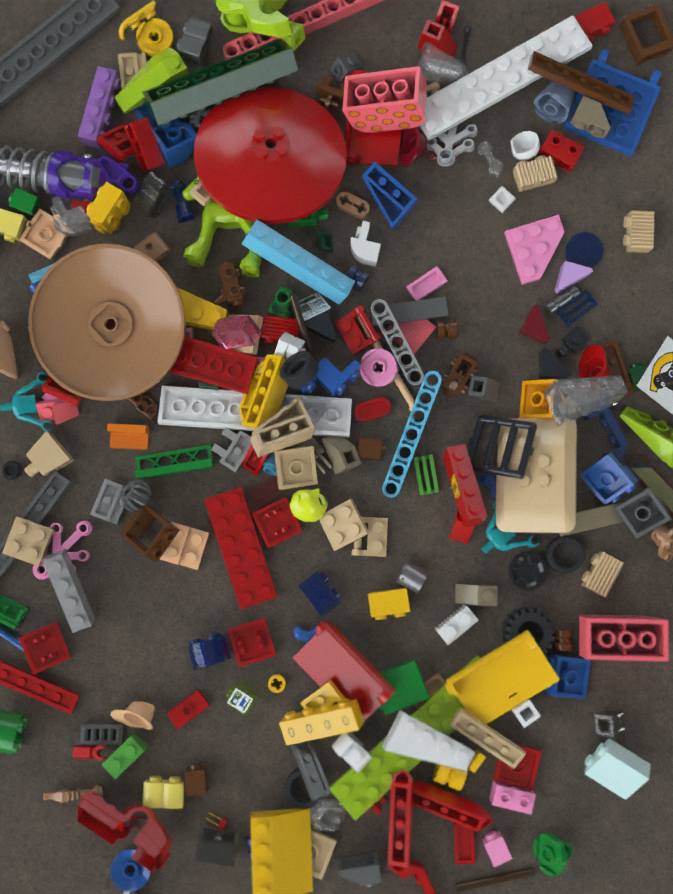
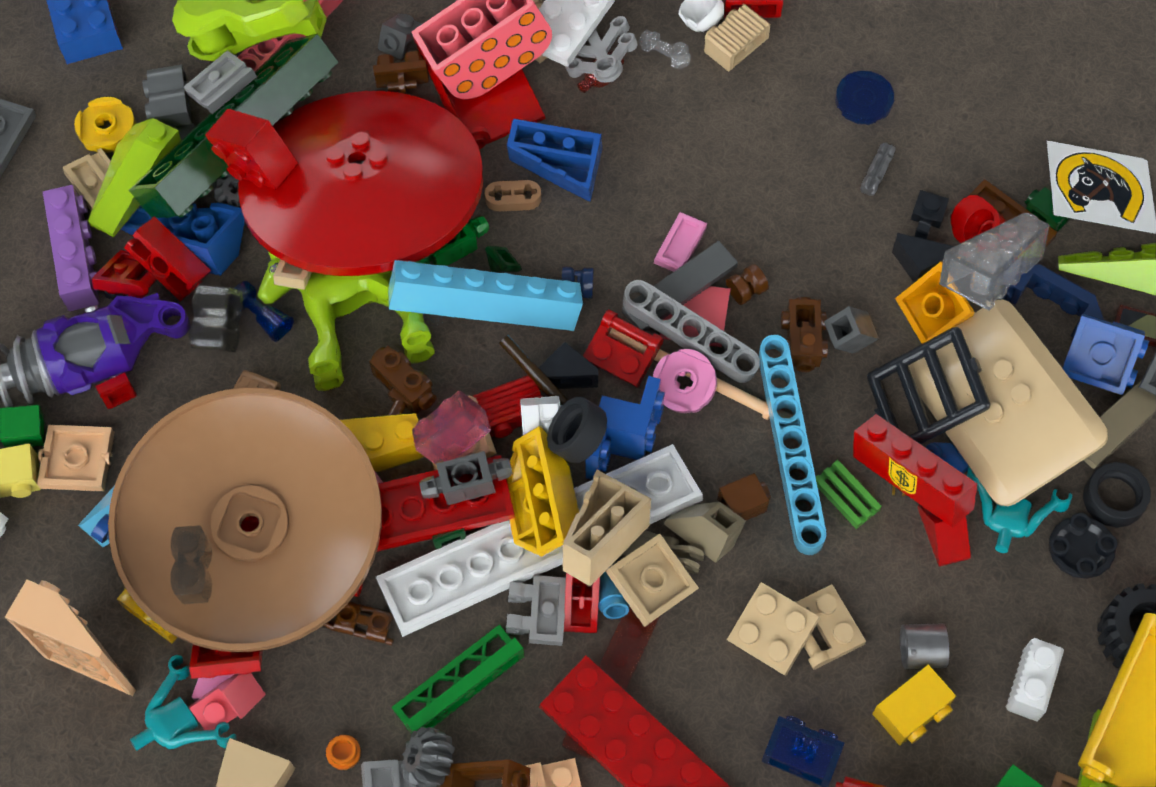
camera: 30 degrees left, 20 degrees down
(63, 338) = (192, 557): none -> clear smoke brick
(69, 222) = (108, 415): clear brick -> none
(100, 466) = (343, 752): none -> orange plate
(108, 208) = (158, 368): yellow brick -> none
(128, 436) = (363, 680): orange panel -> none
(134, 20) = (63, 117): yellow piece -> none
(214, 107) = (251, 149): none -> red brick
(225, 48) = (219, 82): none -> light grey plate
(241, 359) = (469, 464): none -> dark grey piece
(277, 522) = (671, 682): red plate -> none
(280, 307) = (488, 376): green plate -> none
(306, 505) = (704, 626): neon yellow piece -> none
(313, 306) = (539, 348): sticker -> none
(363, 250) = (564, 242): white brick -> none
(372, 409) = (710, 446): red tile -> none
(412, 145) = (549, 80): dark red piece -> none
(476, 594) = (1034, 619): dark tan slope -> none
(502, 199) = (713, 90): white tile -> none
(534, 246) = (795, 125): bright pink plate -> none
(534, 326) = (865, 219): dark red slope -> none
(565, 317) = (897, 189): clear blue tile -> none
(570, 274) = (867, 131): lavender slope -> none
(639, 231) = (920, 37): tan brick -> none

